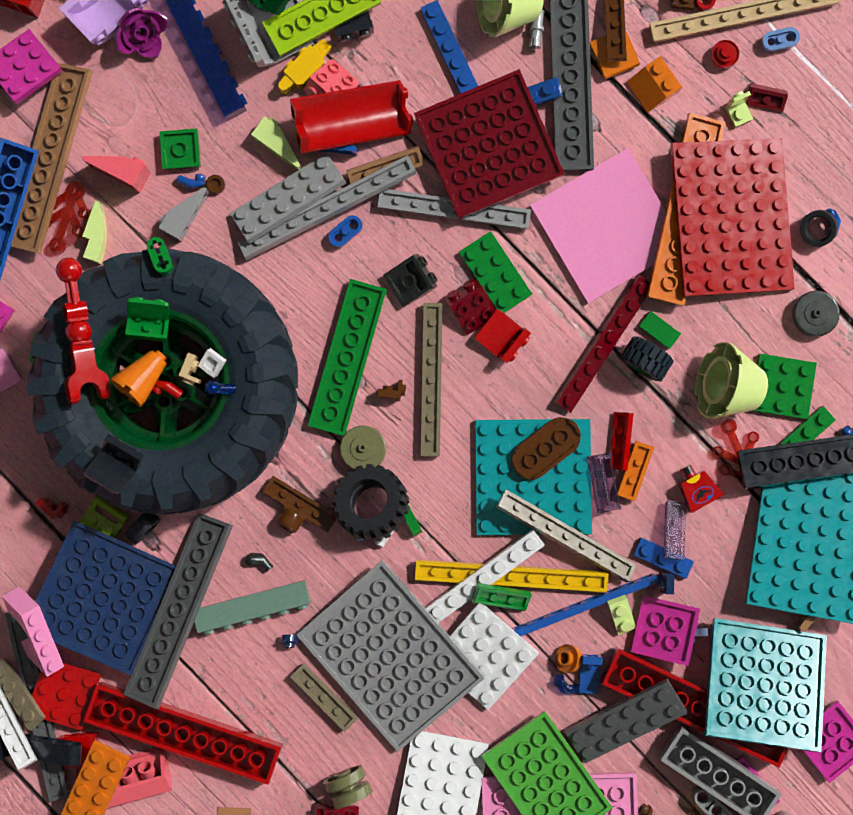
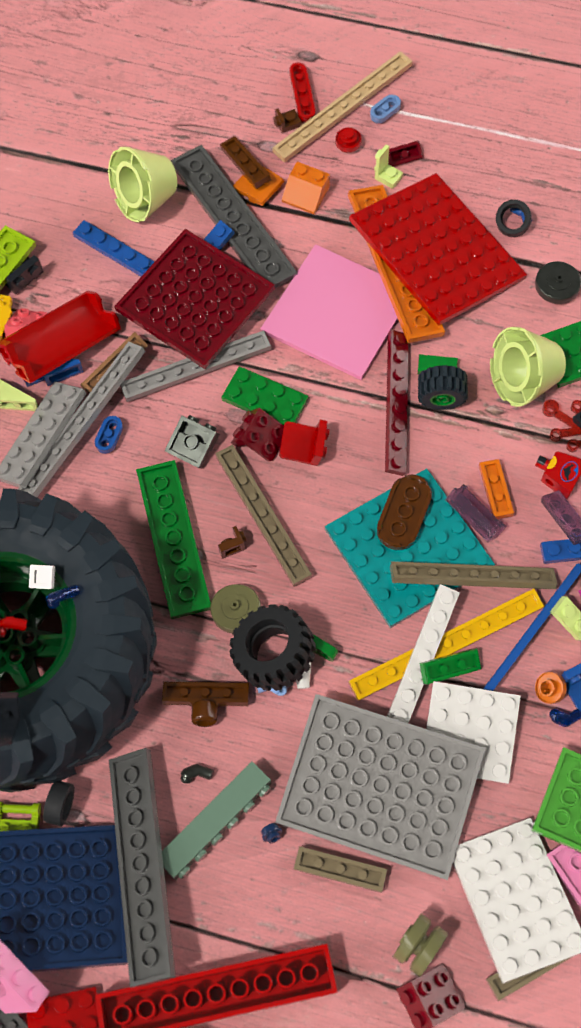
camera: 25 degrees left, 20 degrees down
(190, 365) = (22, 594): tan bracket -> none
(536, 30) = (181, 200): light grey pin -> none
(621, 440) = (466, 469): red plate -> none

